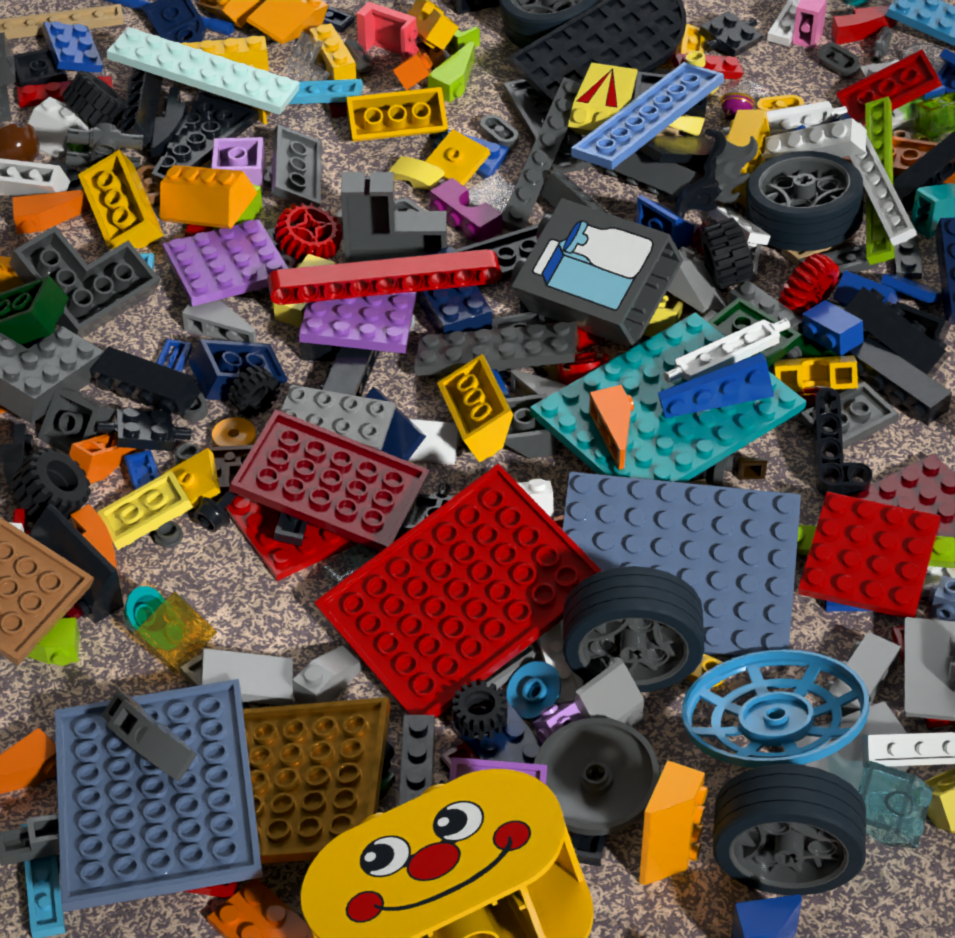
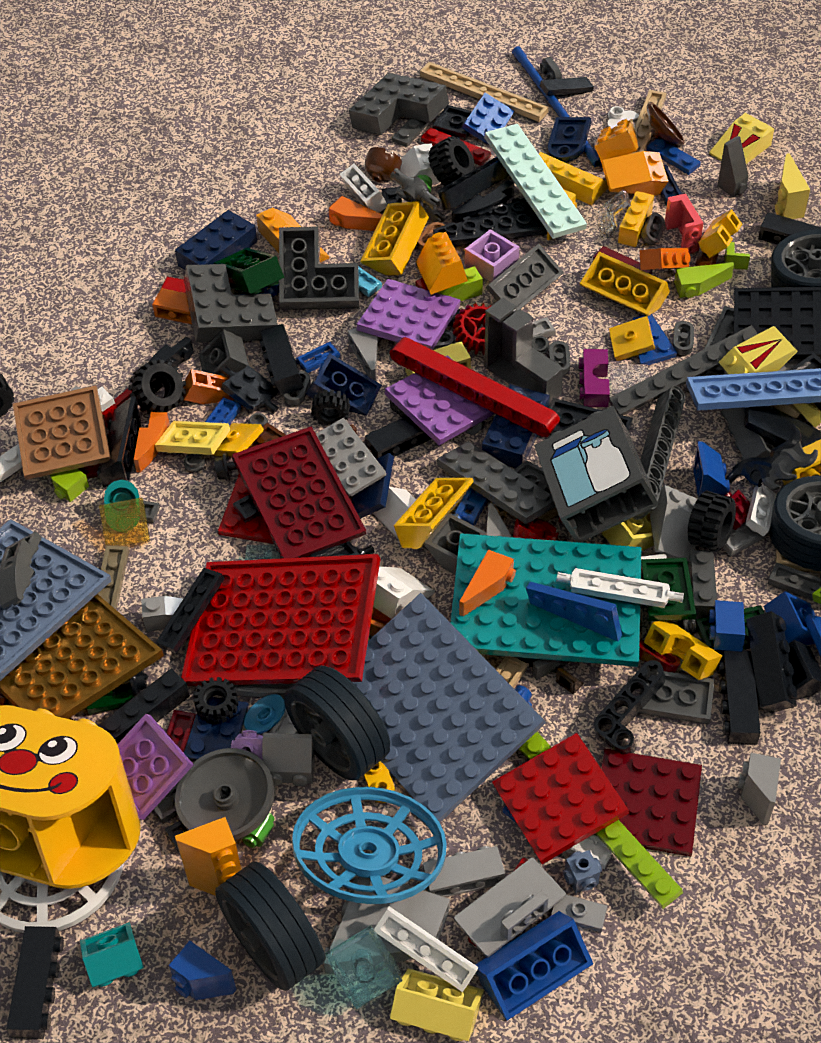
camera: 45 degrees right, 5 degrees up
(233, 426) = (295, 421): light orange piece -> none
(261, 677) = (130, 578): light grey tile -> none
(327, 91) = (602, 240): medium azure plate -> none
(355, 648) = (190, 610): none -> black plate
(418, 172) = (596, 332): light yellow slope -> none
(810, 283) = (748, 584): red gear -> none

